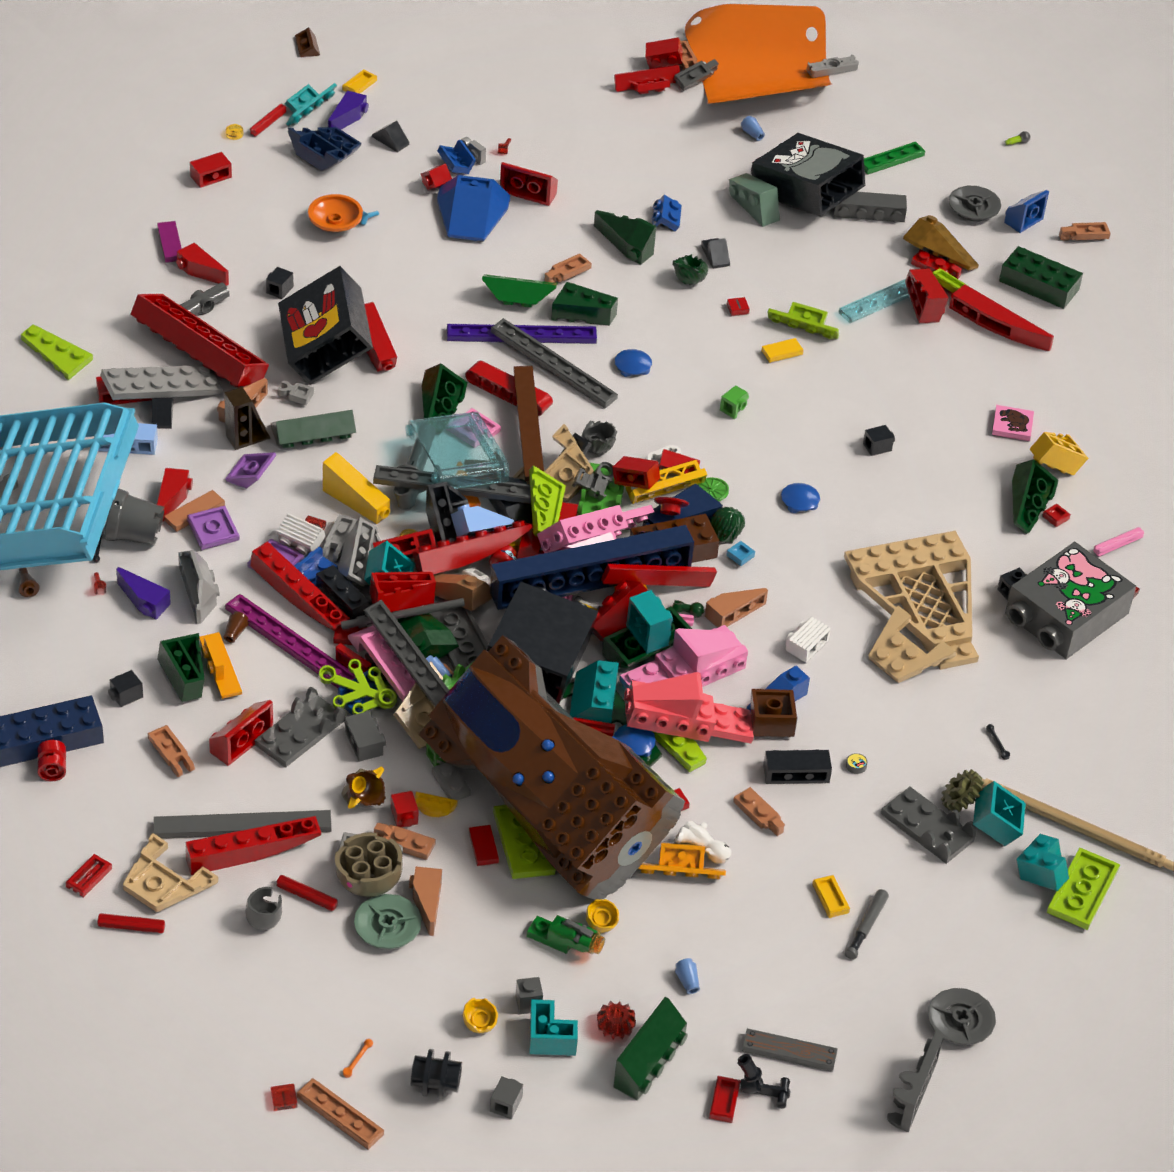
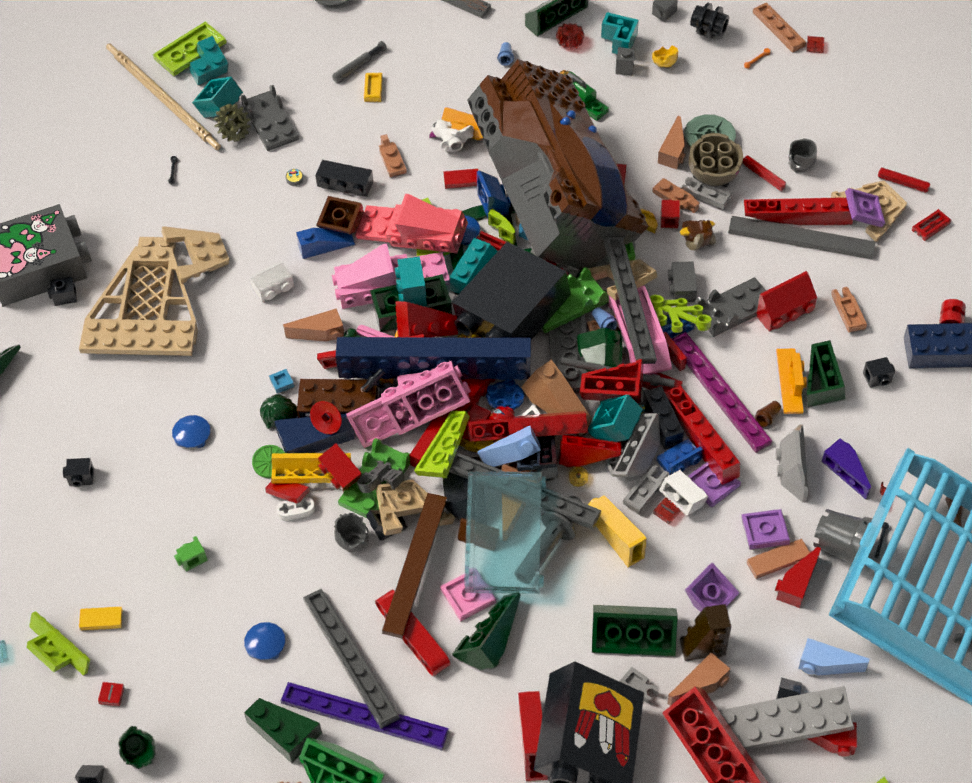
camera: 155 degrees left, 10 degrees up
(173, 848) = (864, 207): none -> medium lavender tile

